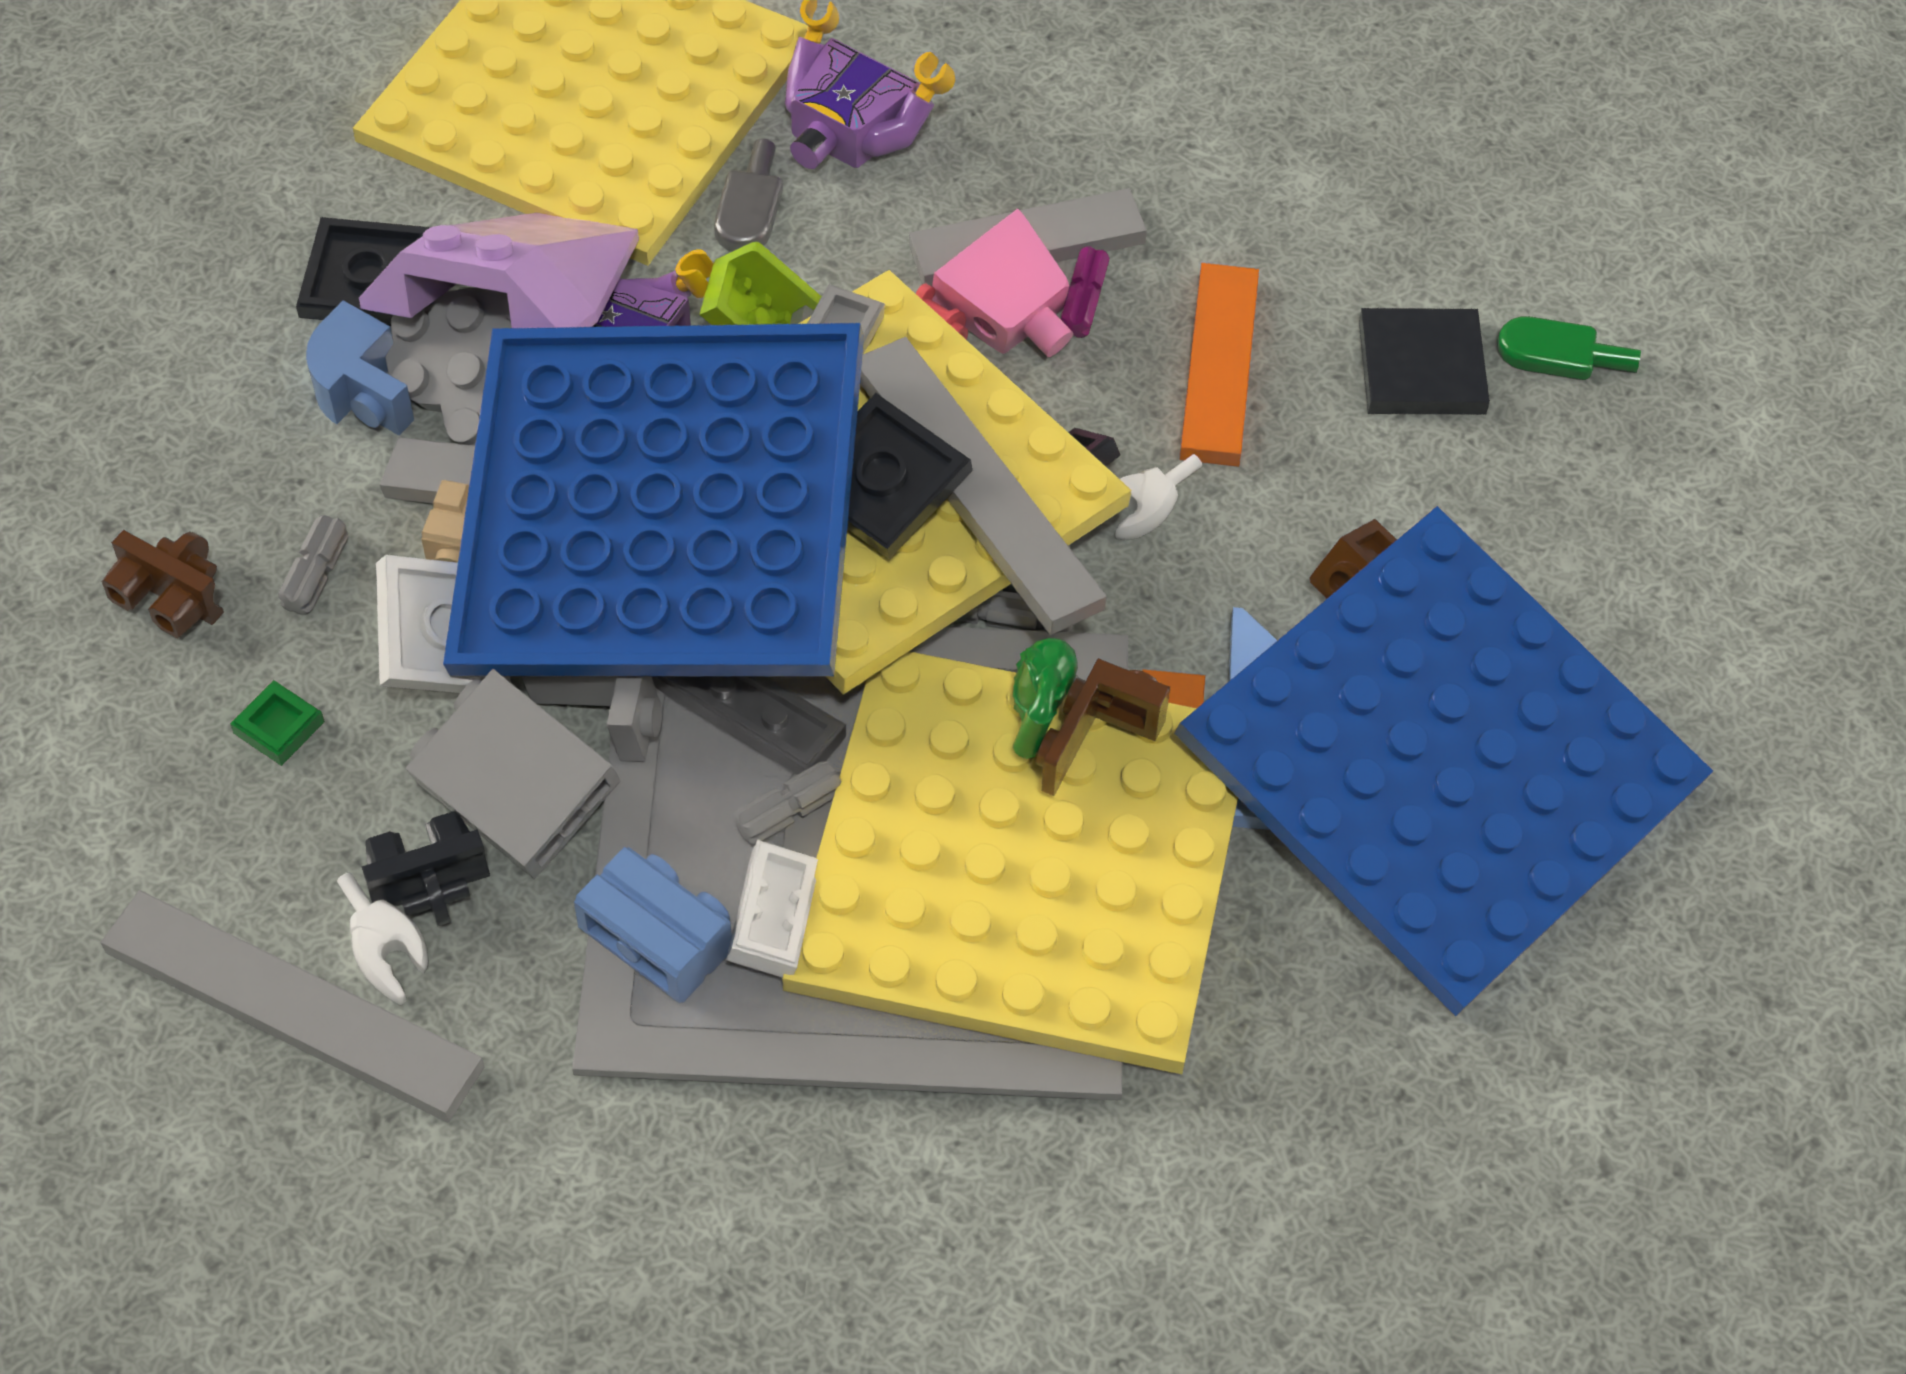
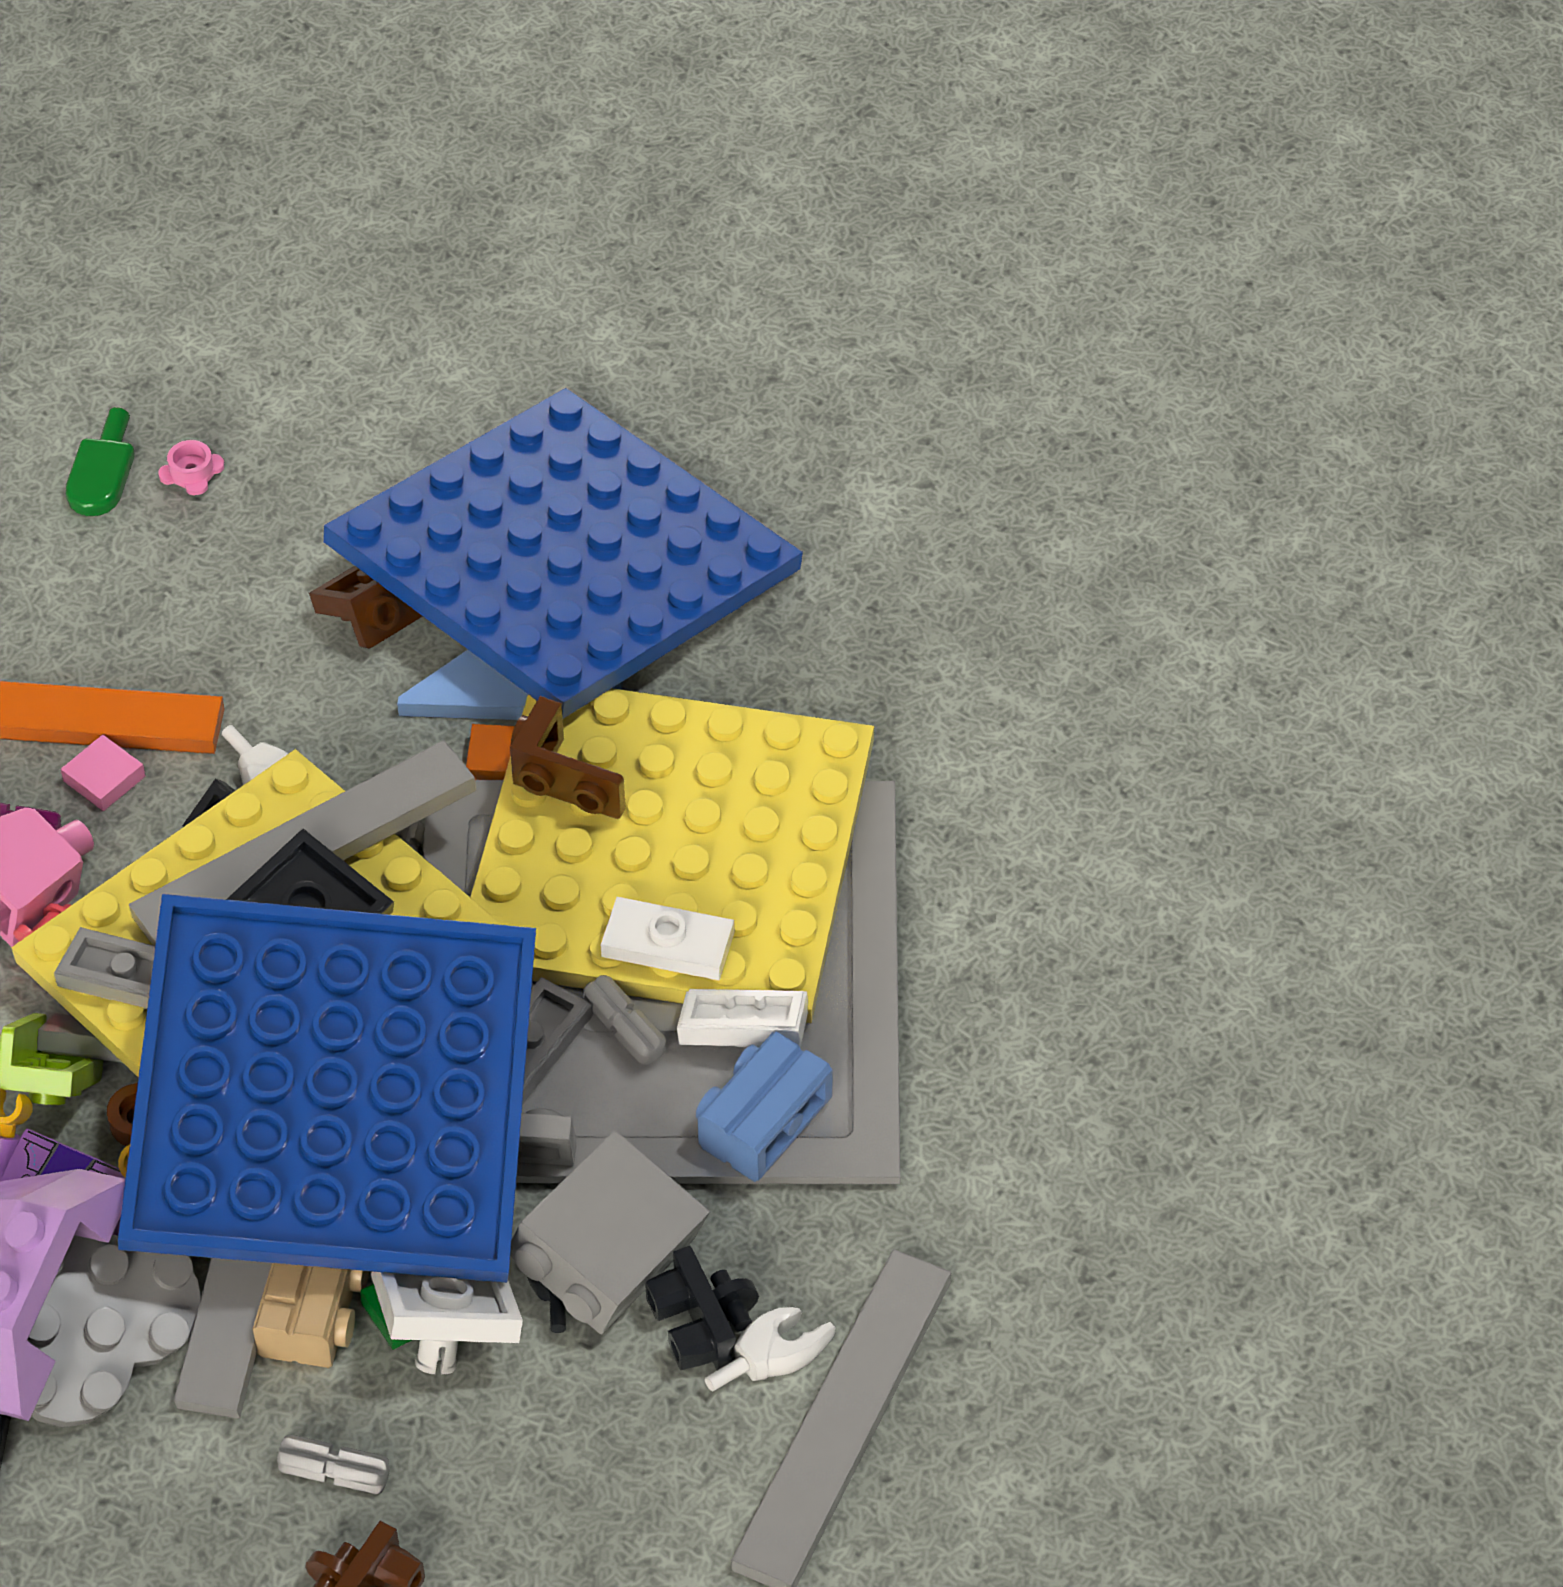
camera: 90 degrees left, 5 degrees down
(277, 722) = (526, 1474): green tile -> none
(351, 370) = (83, 1458): medium blue brick -> none
(866, 828) = (667, 938): none -> white plate
(1039, 689) = (527, 802): green piece -> none
(1147, 363) = (103, 772): none -> bright pink tile
(1423, 361) = (111, 566): black tile -> none
(1569, 410) = (191, 466): none -> bright pink plate

